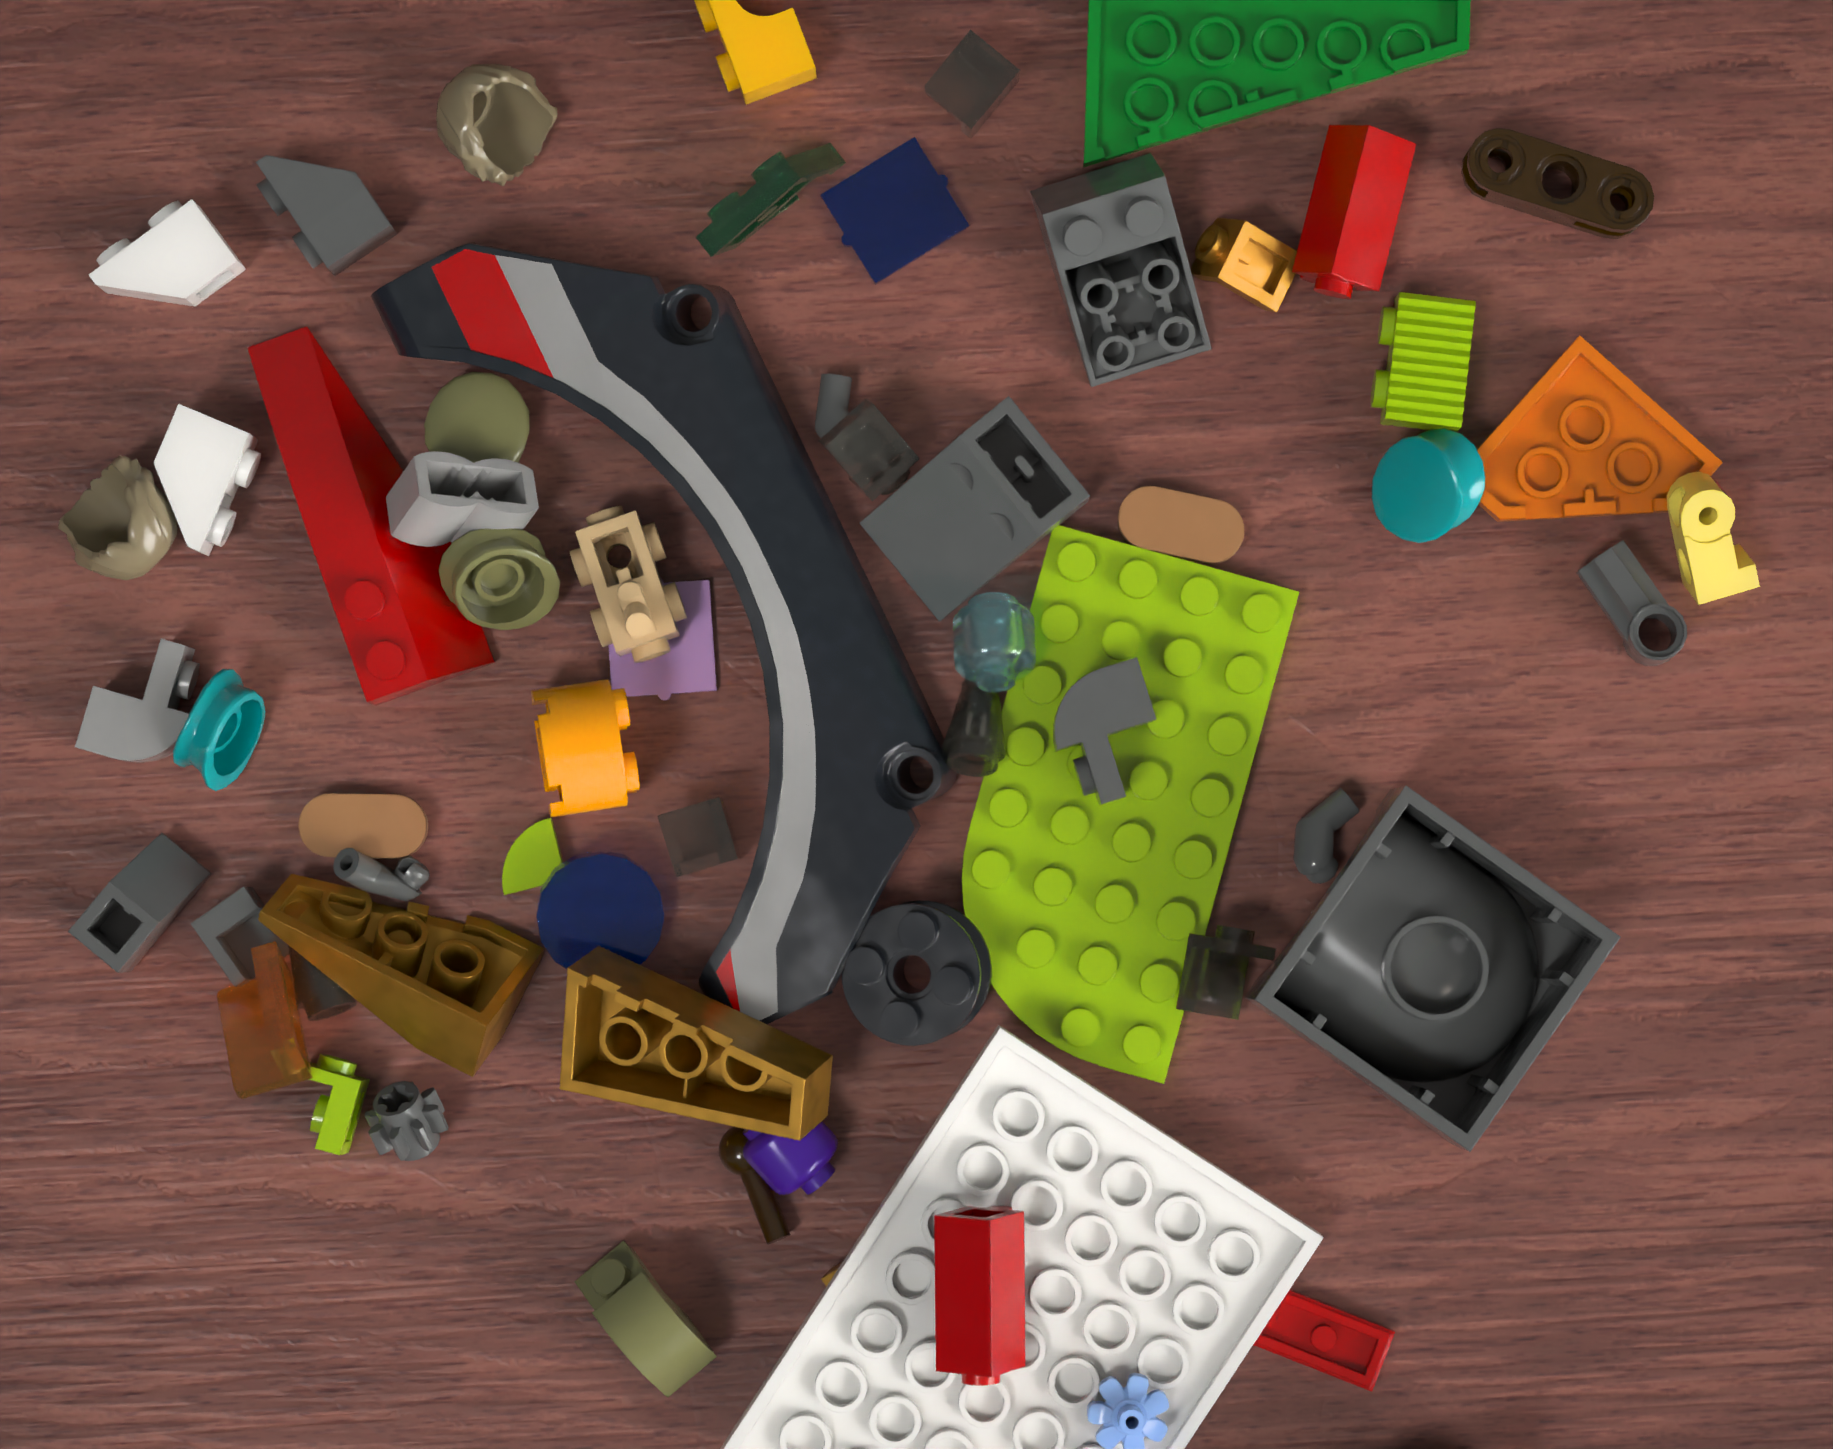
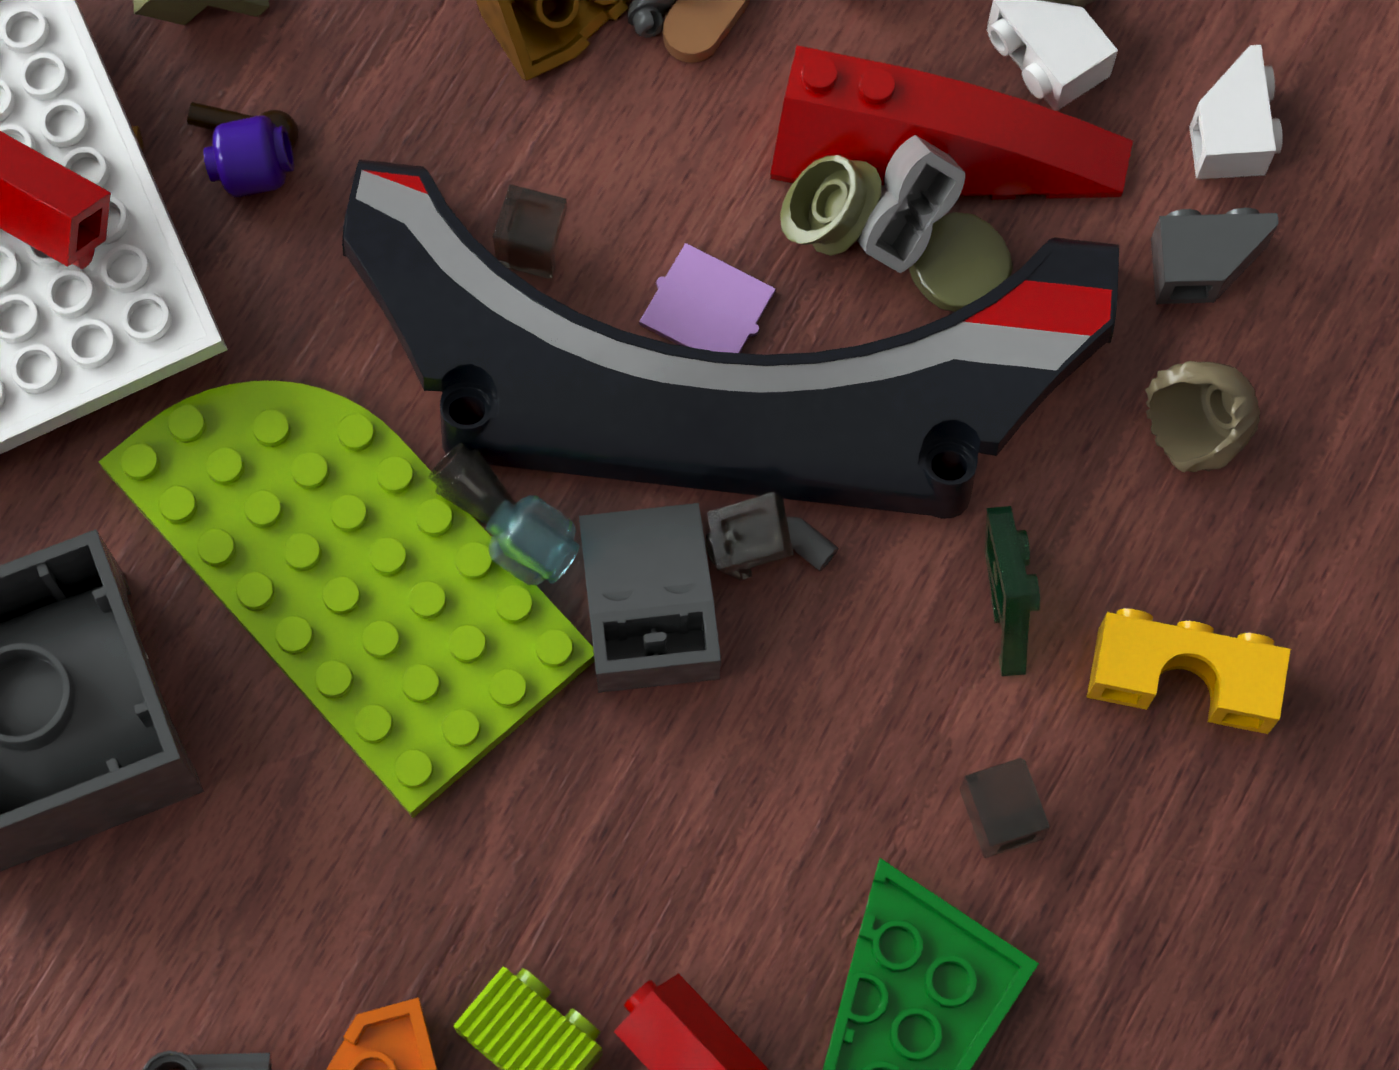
camera: 120 degrees right, 15 degrees down
(531, 858) = (598, 113): lime tile -> none
(583, 747) = (658, 182): light orange brick -> none
(599, 903) = (523, 129): clear blue tile -> none
(634, 605) = (750, 294): tan brick -> none
(685, 1054) = (369, 109): pearl gold wedge -> none
(894, 210) = (936, 690): clear blue piece -> none
(957, 963) = (305, 294): black wheel -> none
(1090, 712) = (418, 571): dark grey brick -> none
(1121, 269) = (774, 835): dark grey slope -> none
(1181, 524) = (529, 755): medium nougat tile -> none
(1217, 971) = (153, 554): clear smoke bracket -> none
(1245, 262) = (711, 941): pearl gold bracket -> none
(1316, 836) = (207, 701): dark grey arm -> none
(1428, 485) = (425, 971): teal piece -> none

